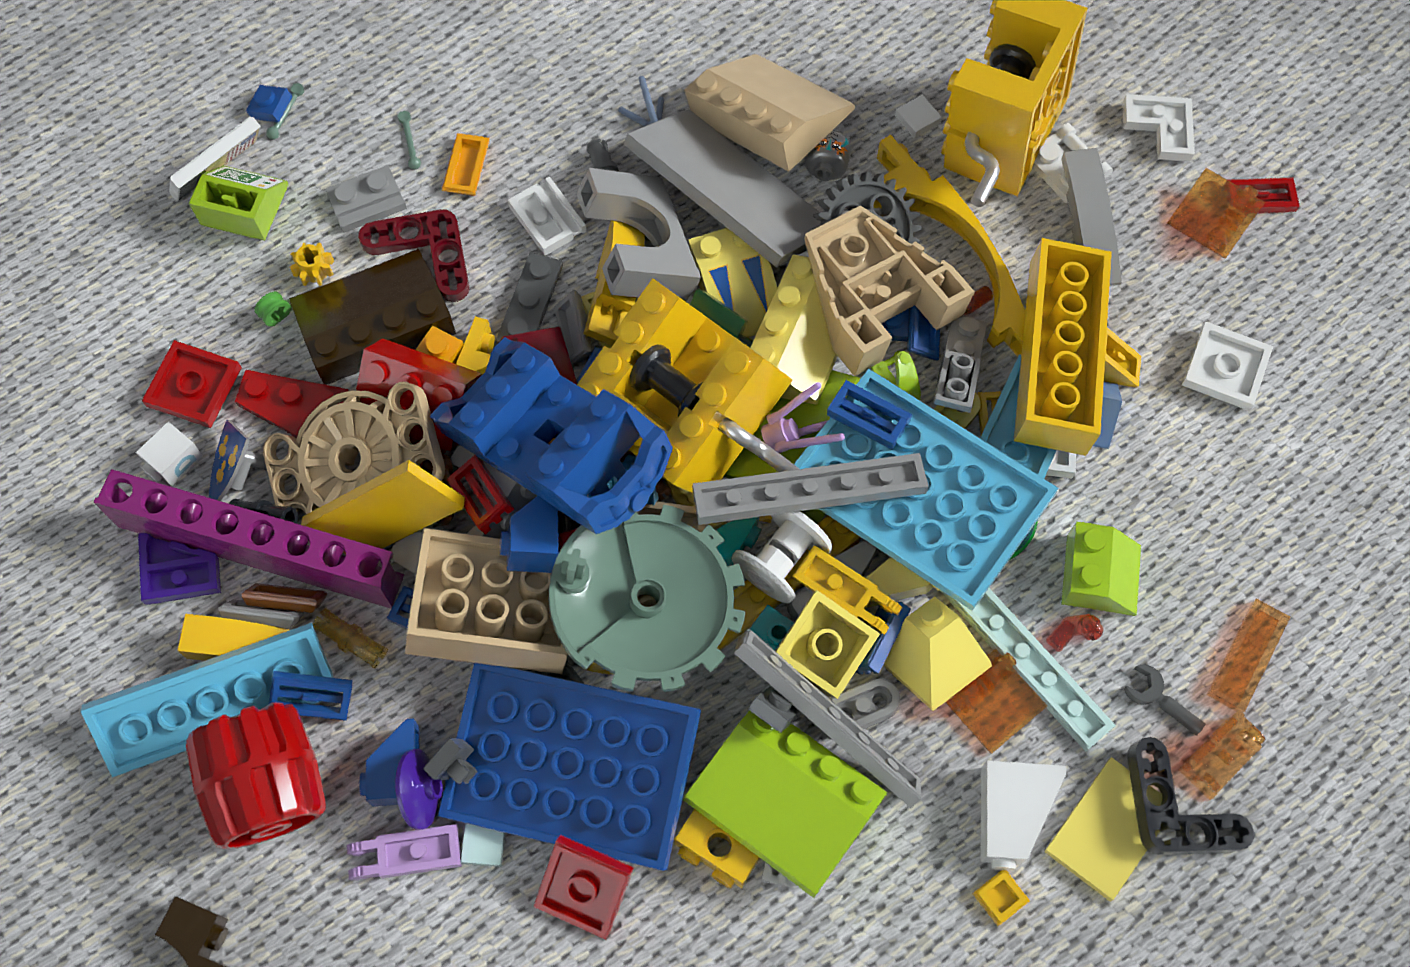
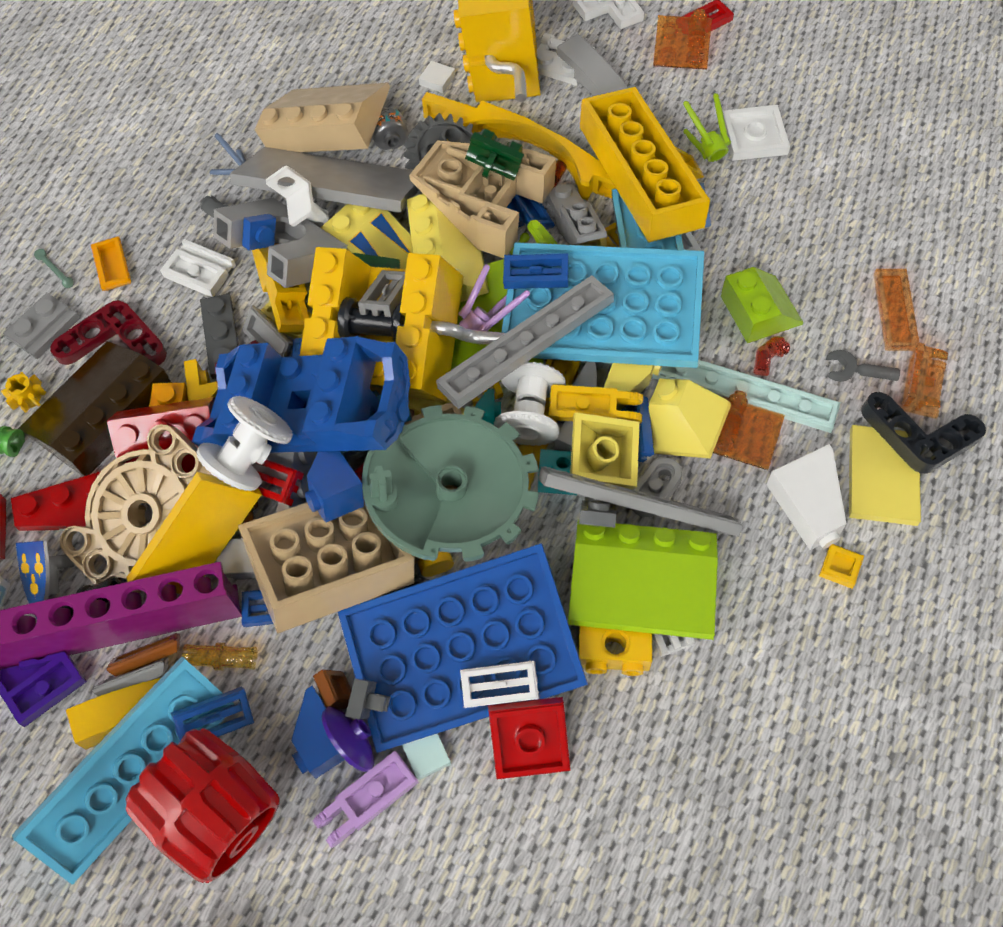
camera: 25 degrees left, 5 degrees down
(433, 730) = (333, 688): none -> dark orange tile
(486, 448) = (246, 446): none -> white hose
(613, 834) = (531, 680): none -> white tile
(622, 213) = (258, 231): none -> blue plate
(680, 201) = (298, 198): none -> white bracket
(704, 362) = (389, 299): none -> light grey tile
(903, 260) = (493, 155): none -> dark green hips
(1167, 356) = (713, 144): none -> lime plant

